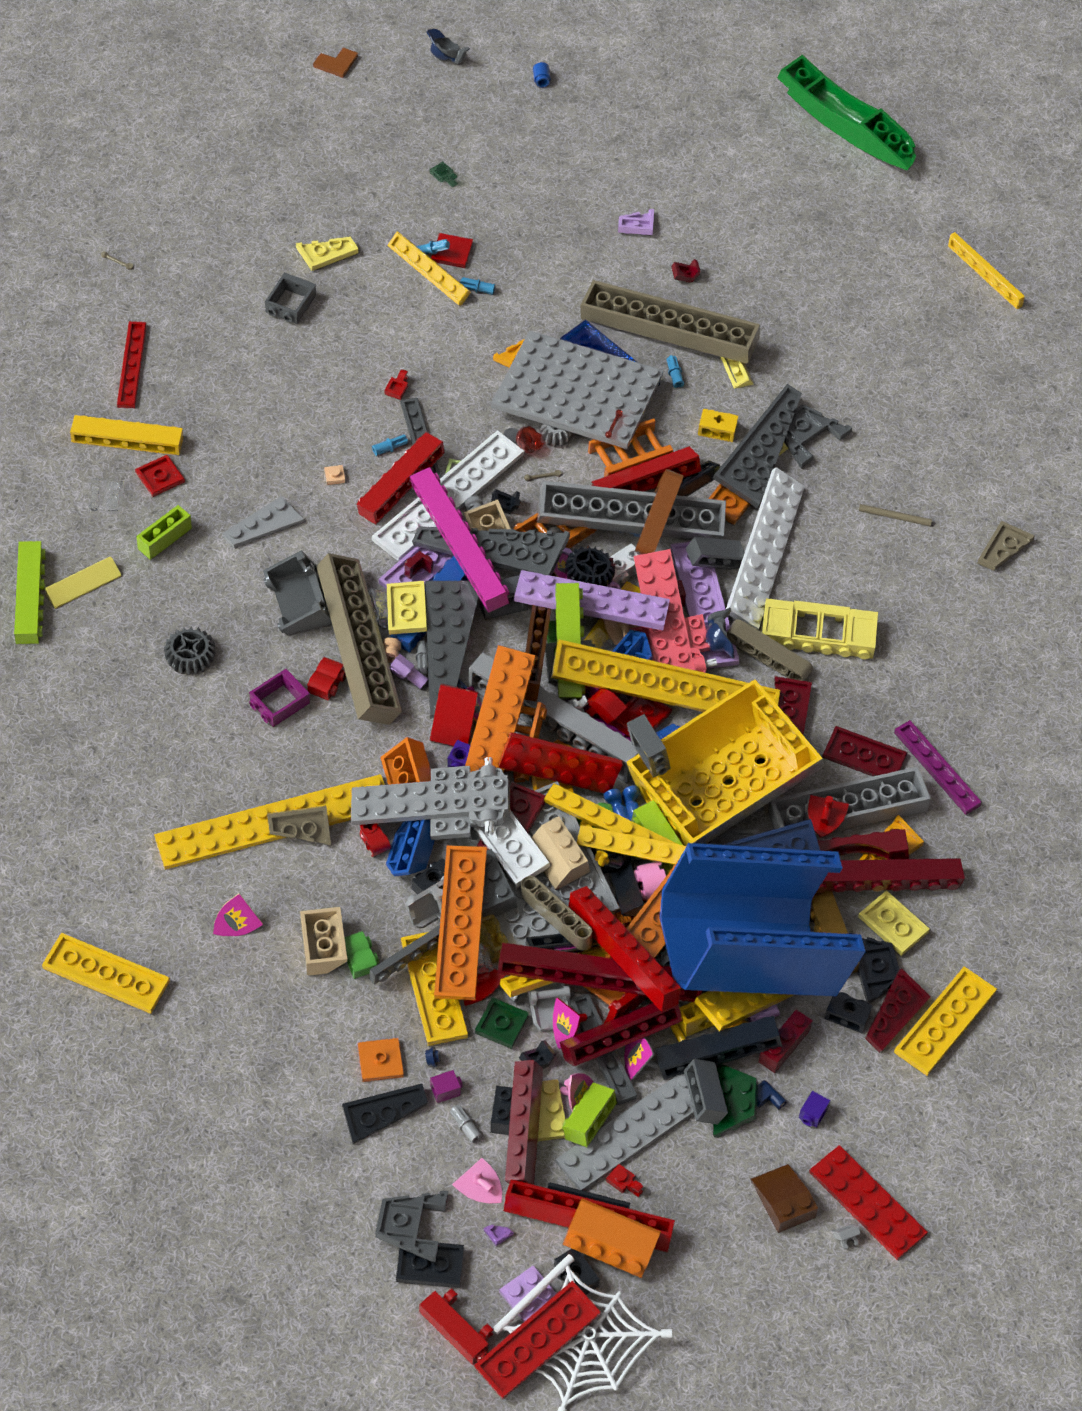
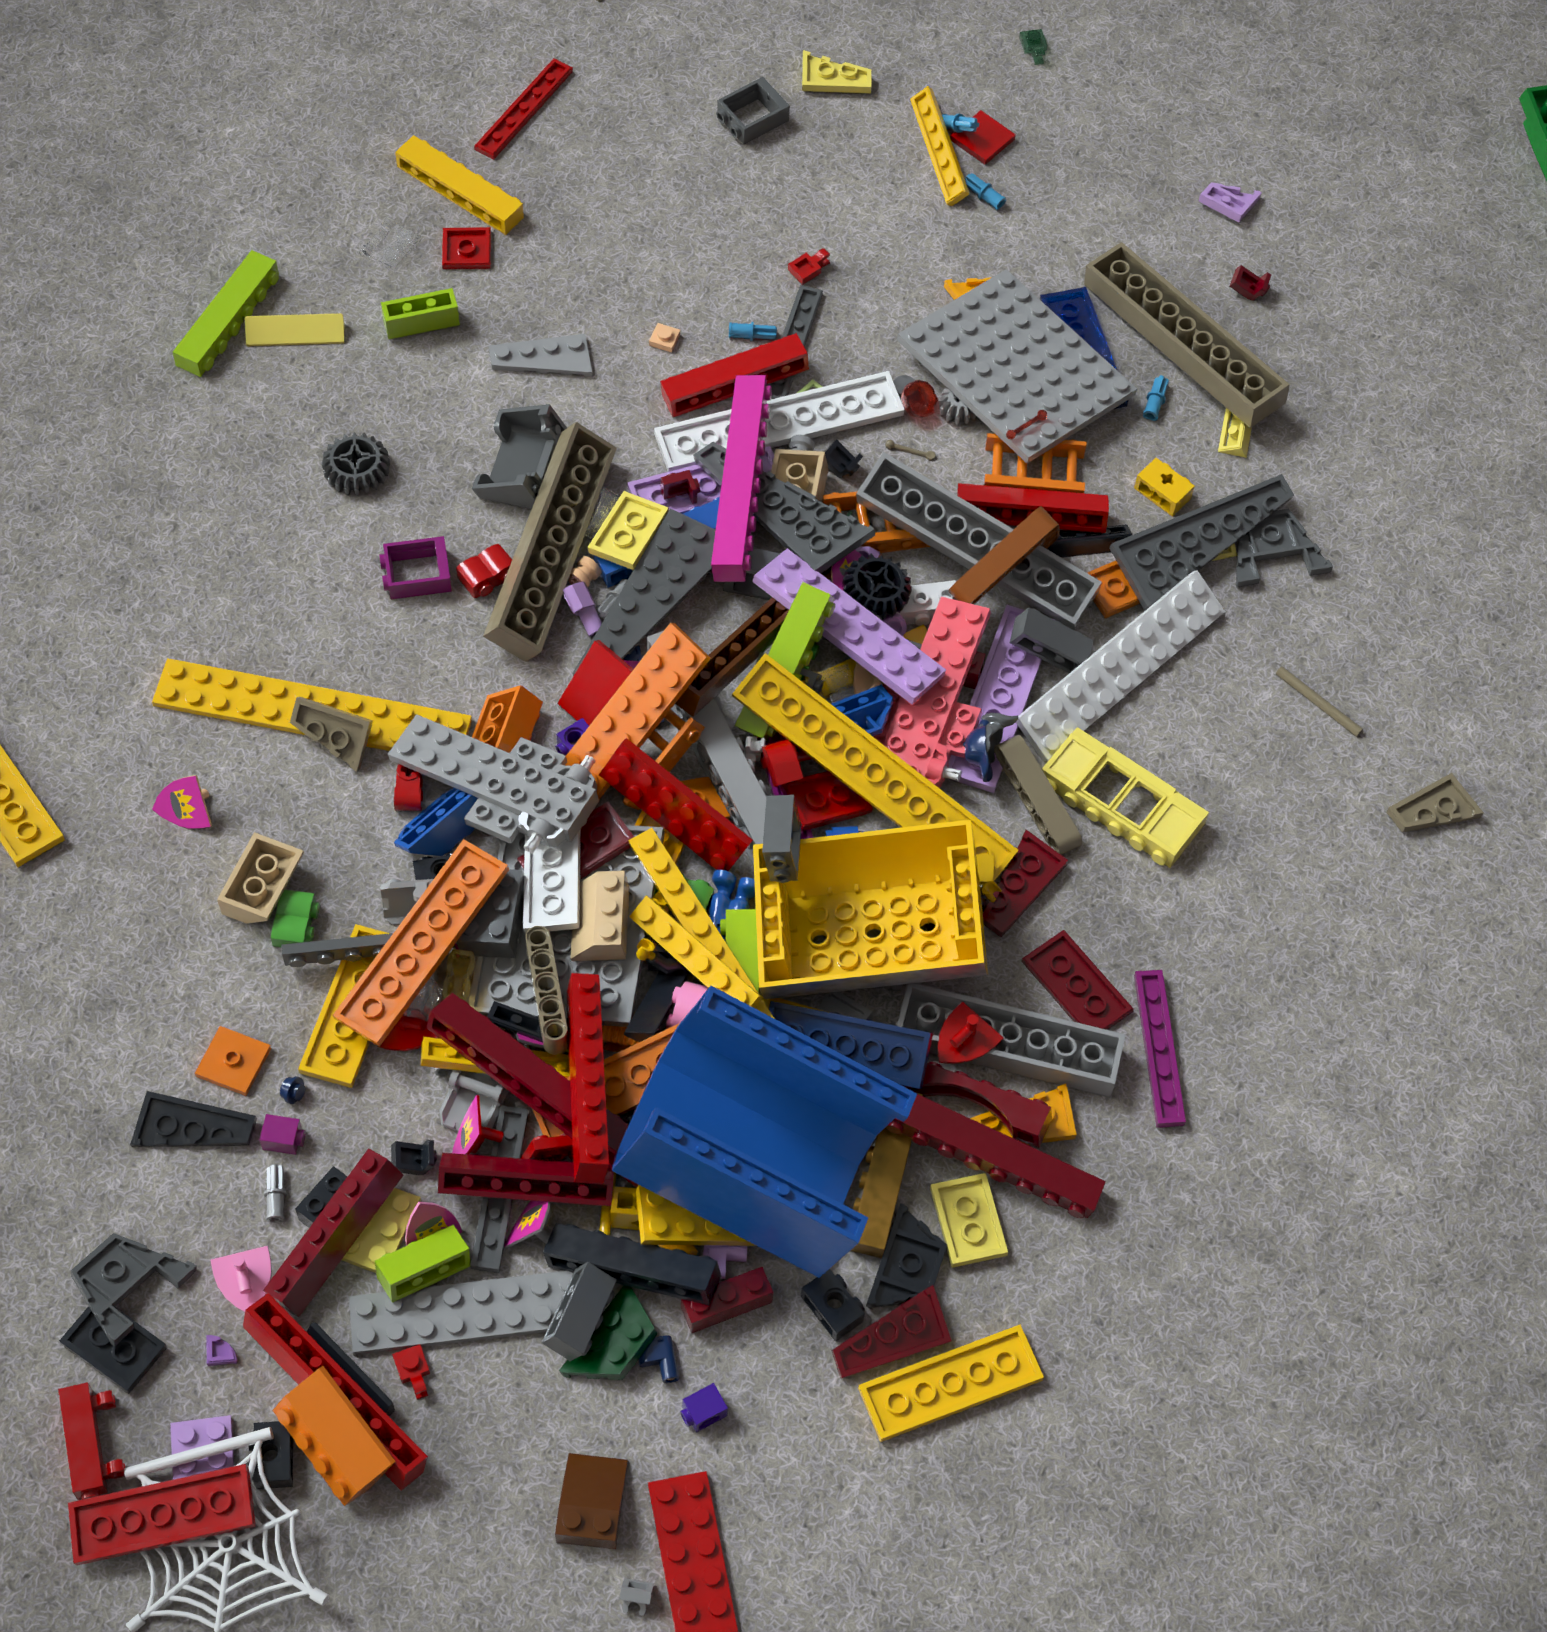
camera: 30 degrees right, 5 degrees up
(501, 1023) = (402, 1091): dark green plate -> none

